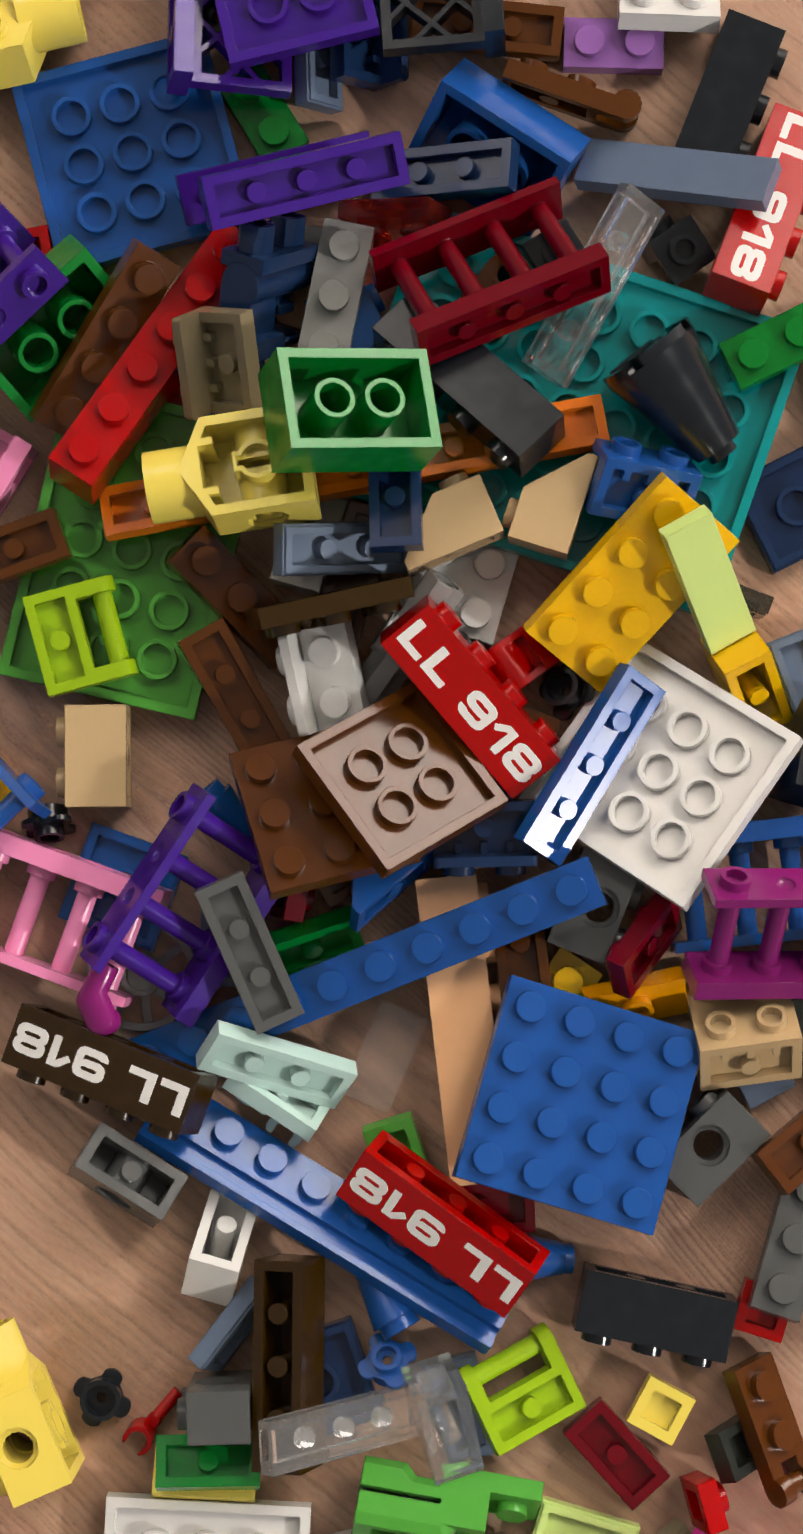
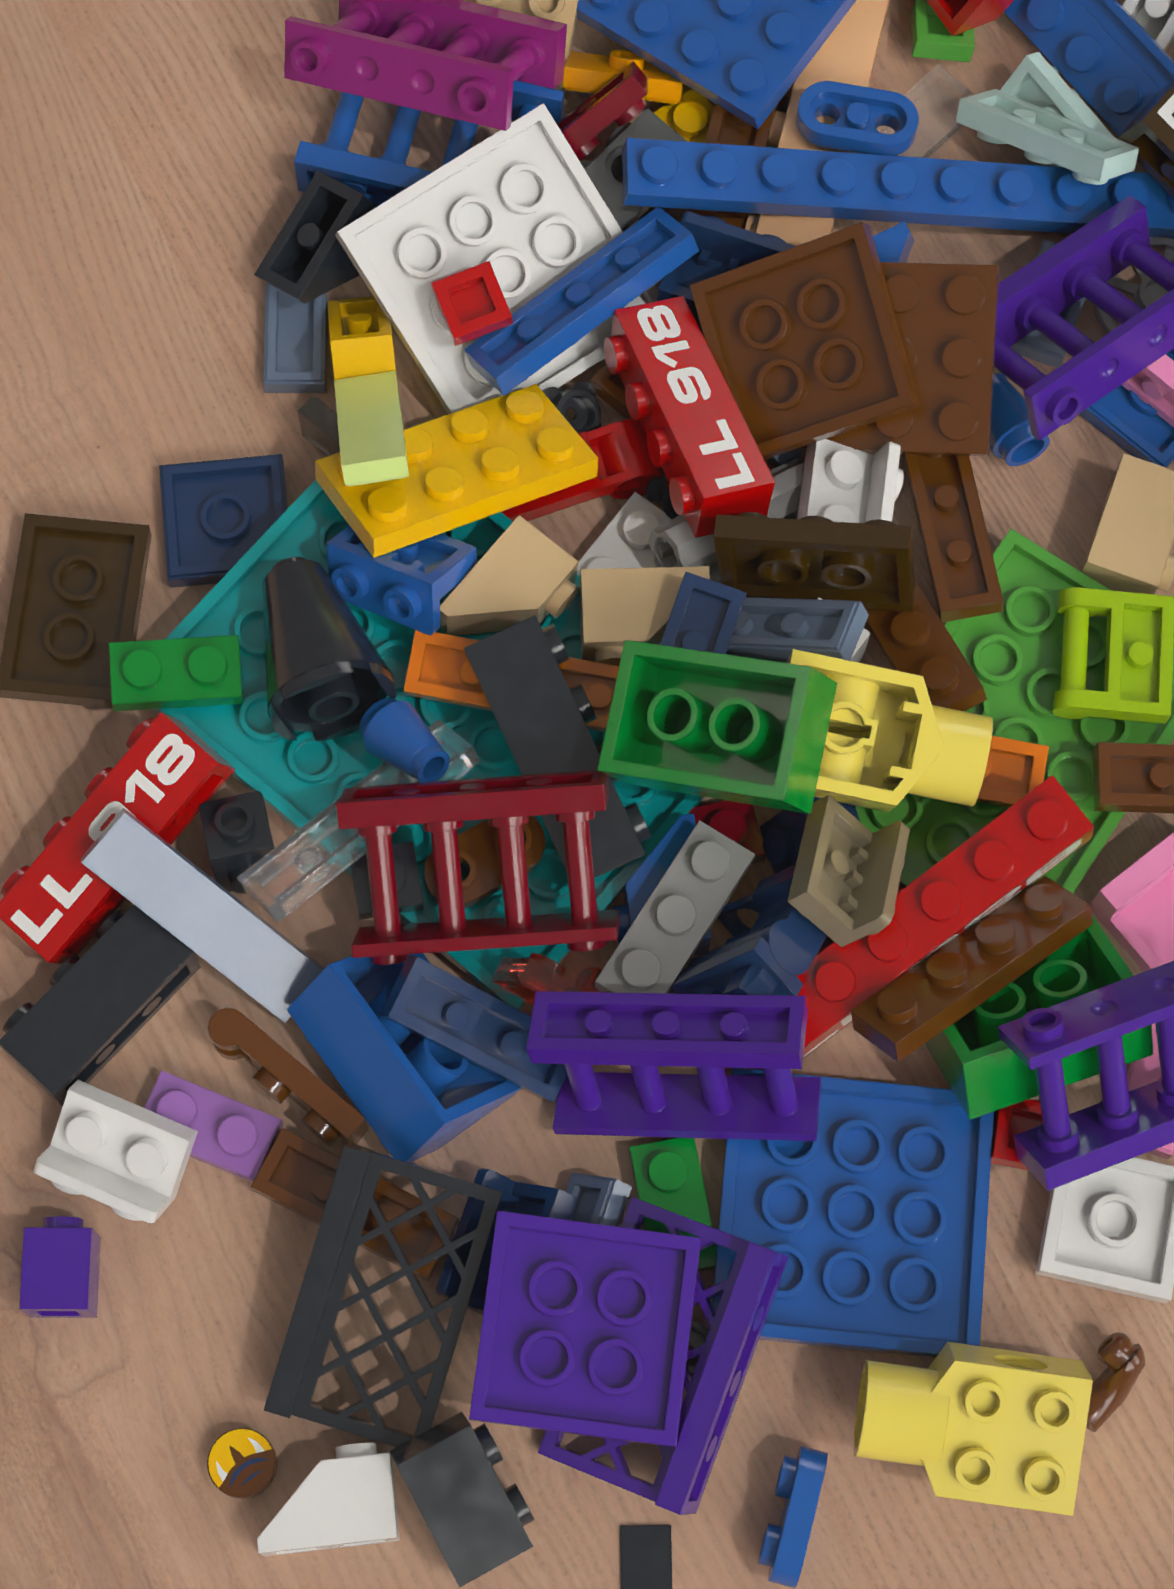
camera: 170 degrees left, 15 degrees down
(249, 952) = (1040, 236): dark grey plate -> none
(316, 940) = (969, 249): green plate -> none
(431, 1010) = (857, 115): none -> blue plate
(582, 346) = (402, 739): none -> blue cone
(673, 722) = (472, 303): none -> red plate

